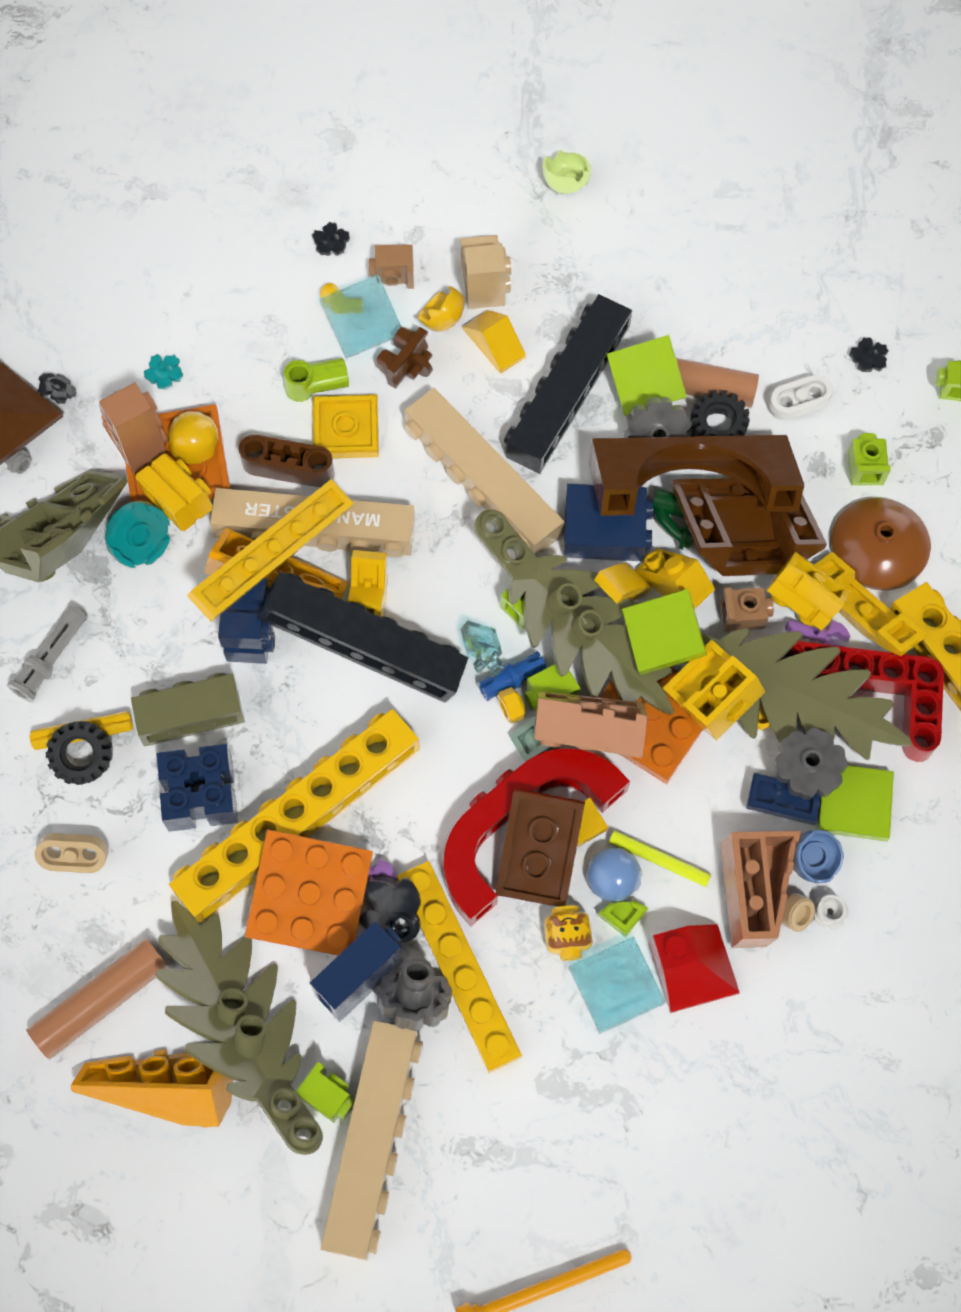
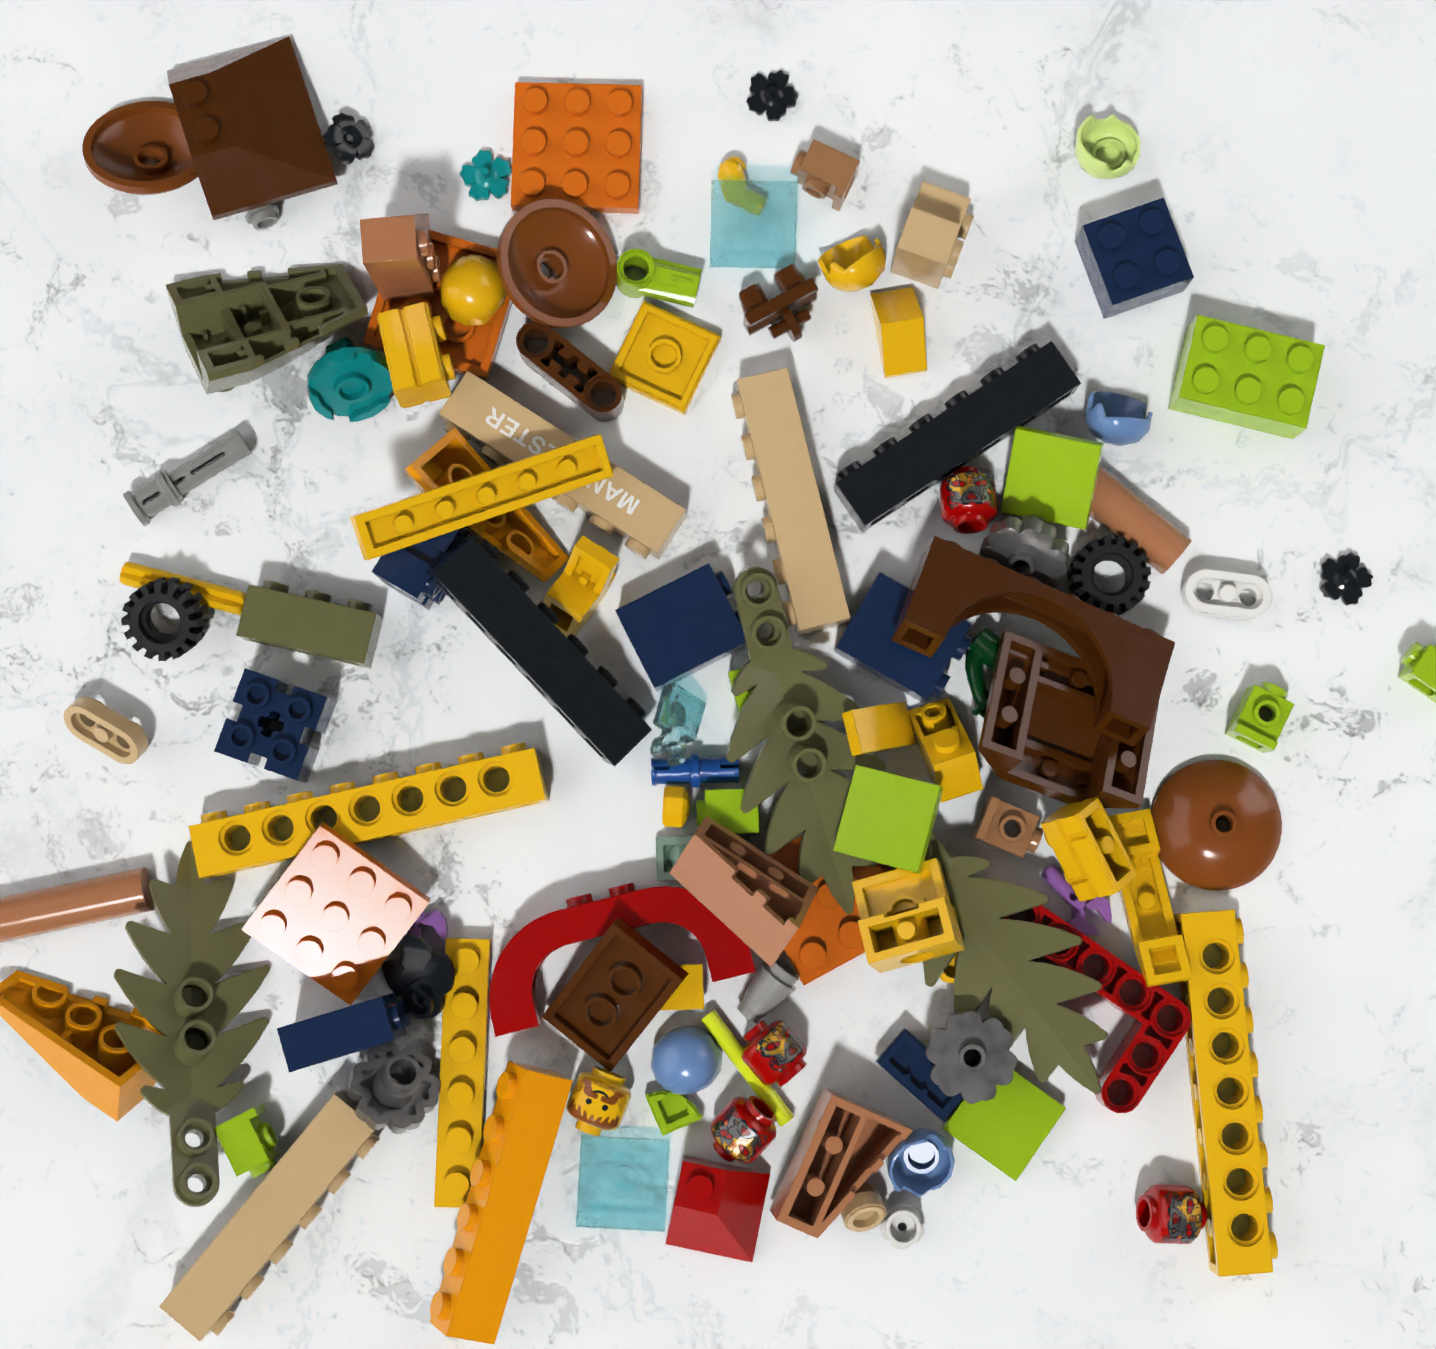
camera: 30 degrees right, 15 degrees up
(217, 326) = (577, 145): none -> orange plate
(242, 395) = (572, 249): none -> dark orange dish
(452, 585) = (683, 626): none -> dark blue brick
(537, 1039) = (500, 1203): none -> light orange brick
(599, 416) = (968, 500): none -> head
(621, 226) = (1133, 258): none -> dark blue brick
(644, 795) = (767, 990): none -> light grey cone
(670, 322) = (1117, 418): none -> medium blue hair
(673, 834) = (773, 1052): none -> head
(682, 899) = (743, 1129): none -> head
(734, 262) = (1246, 377): none -> lime brick

